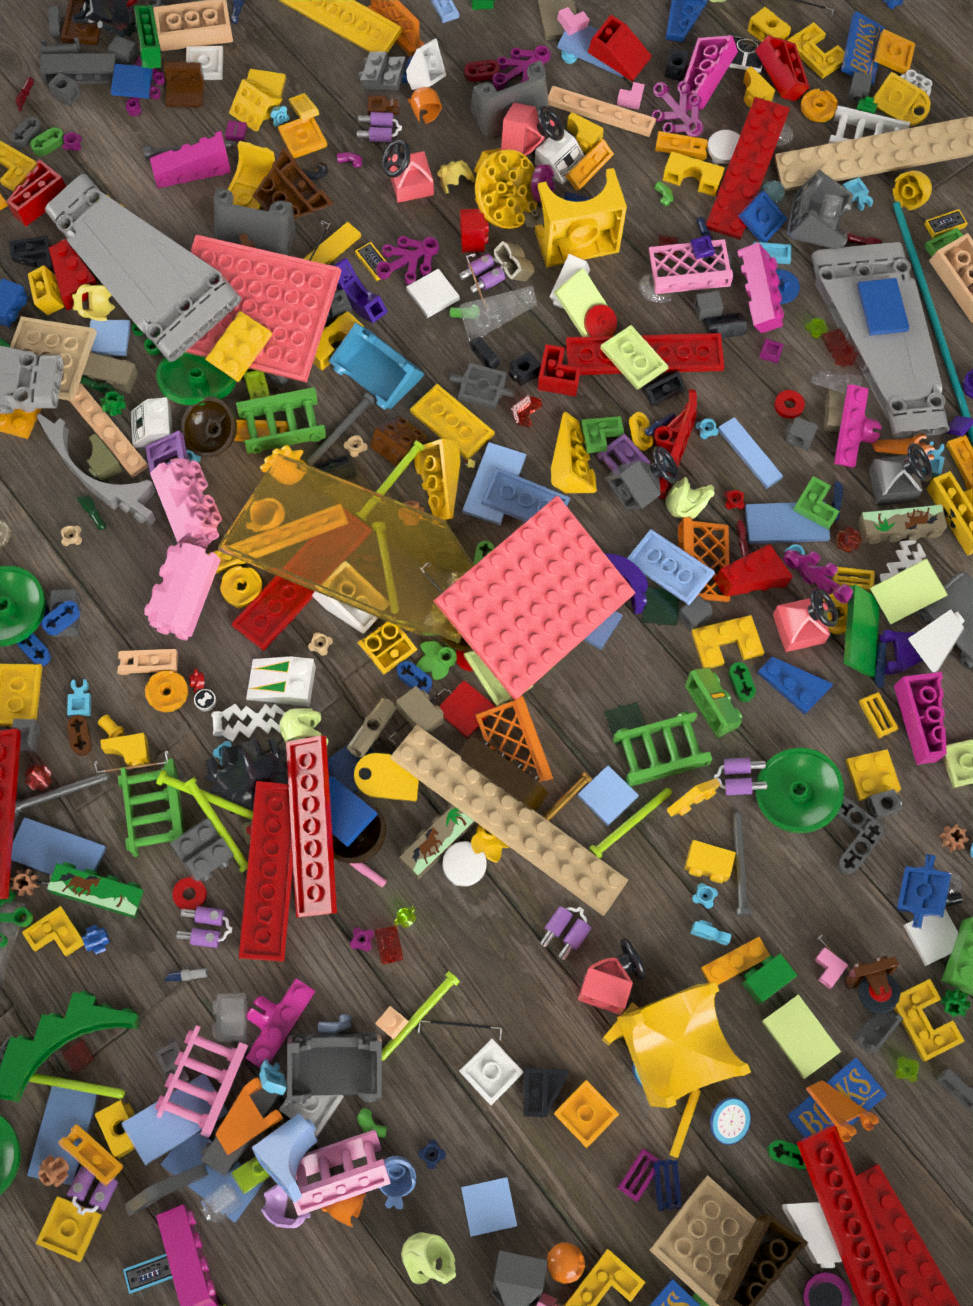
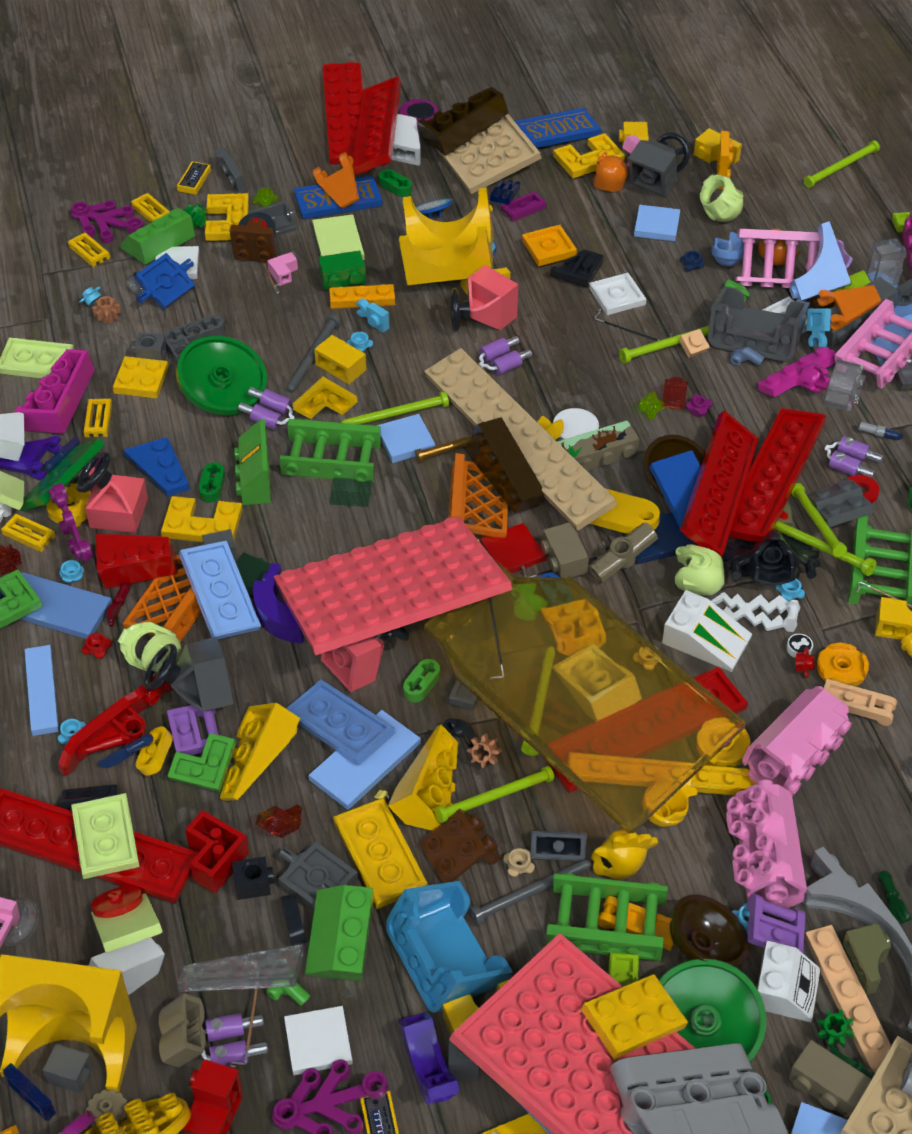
camera: 155 degrees left, 20 degrees down
(447, 348) = (340, 933): none -> bright green slope

